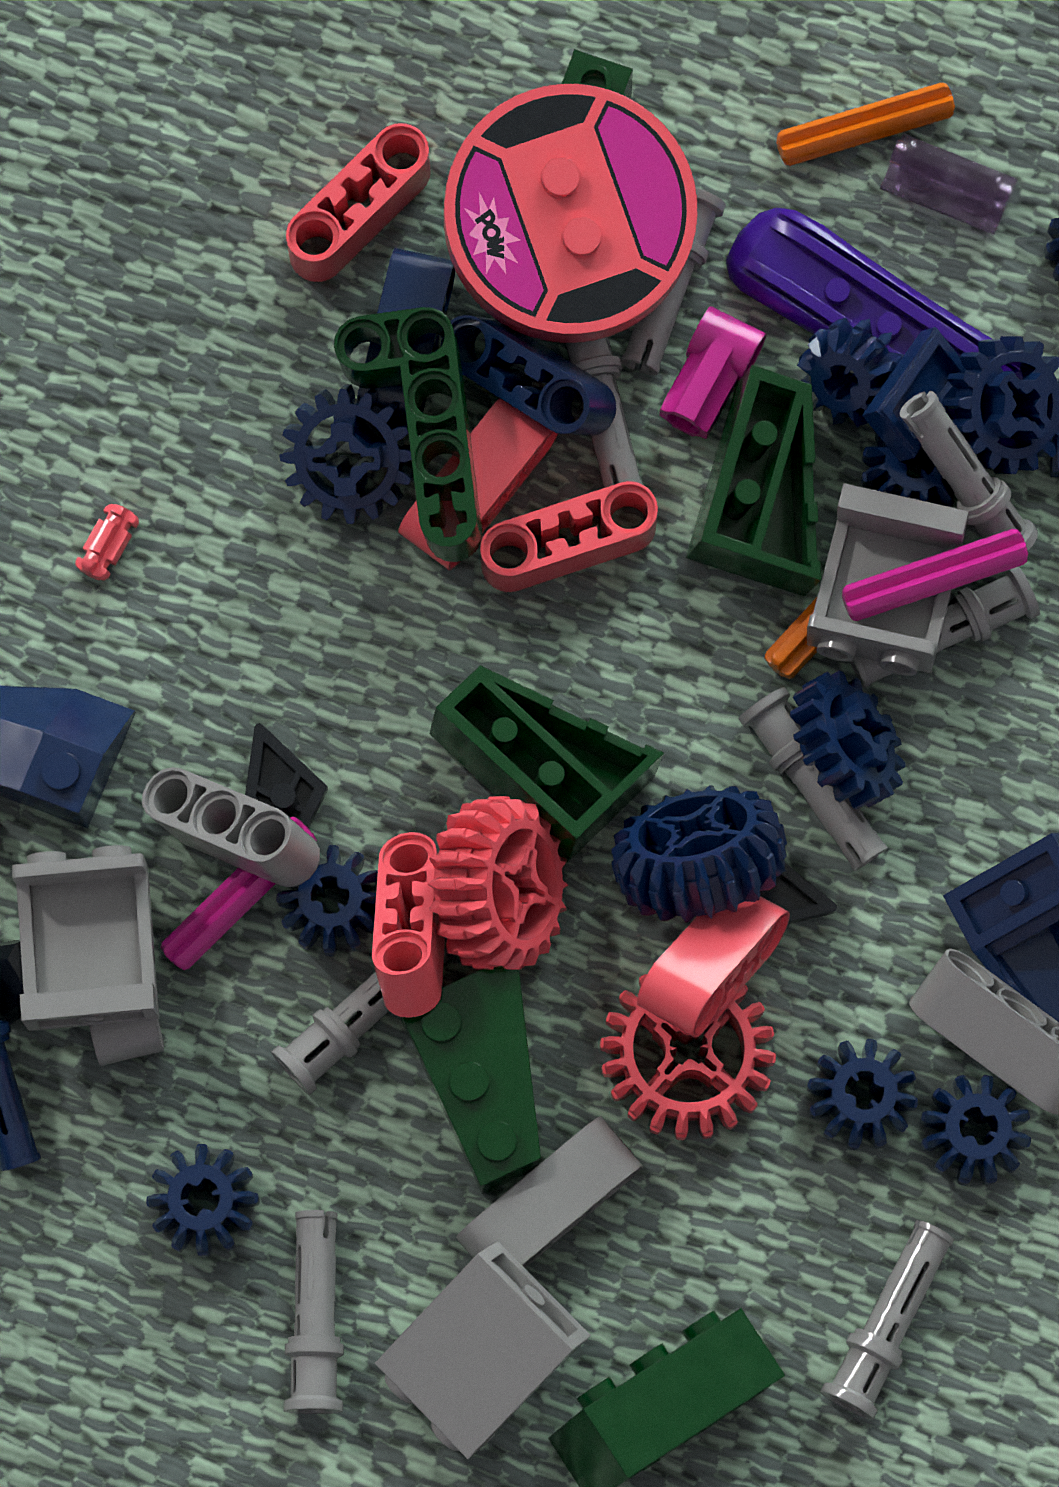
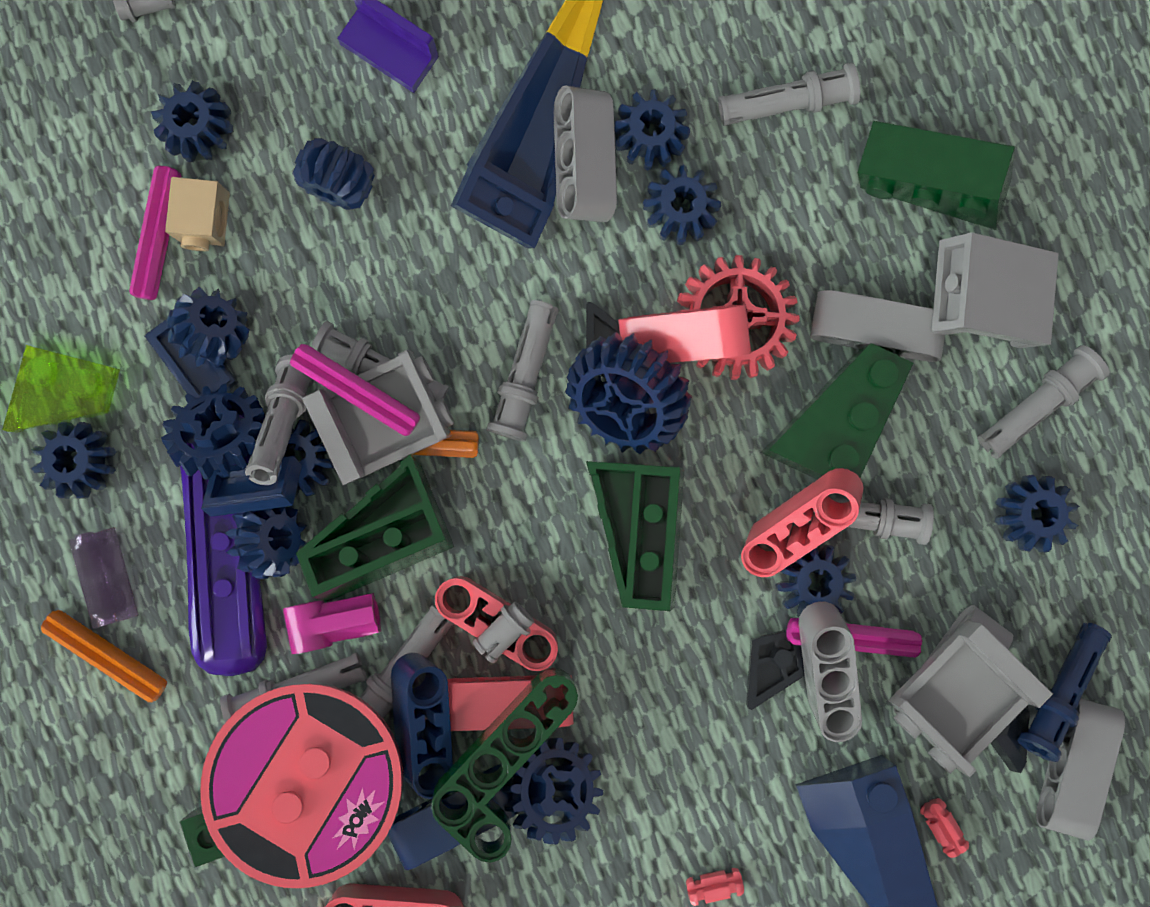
camera: 135 degrees left, 10 degrees up
(497, 884) = (740, 492): coral gear -> none
(557, 537) = (504, 631): none -> light grey pin
(847, 739) = (491, 366): dark blue gear -> none

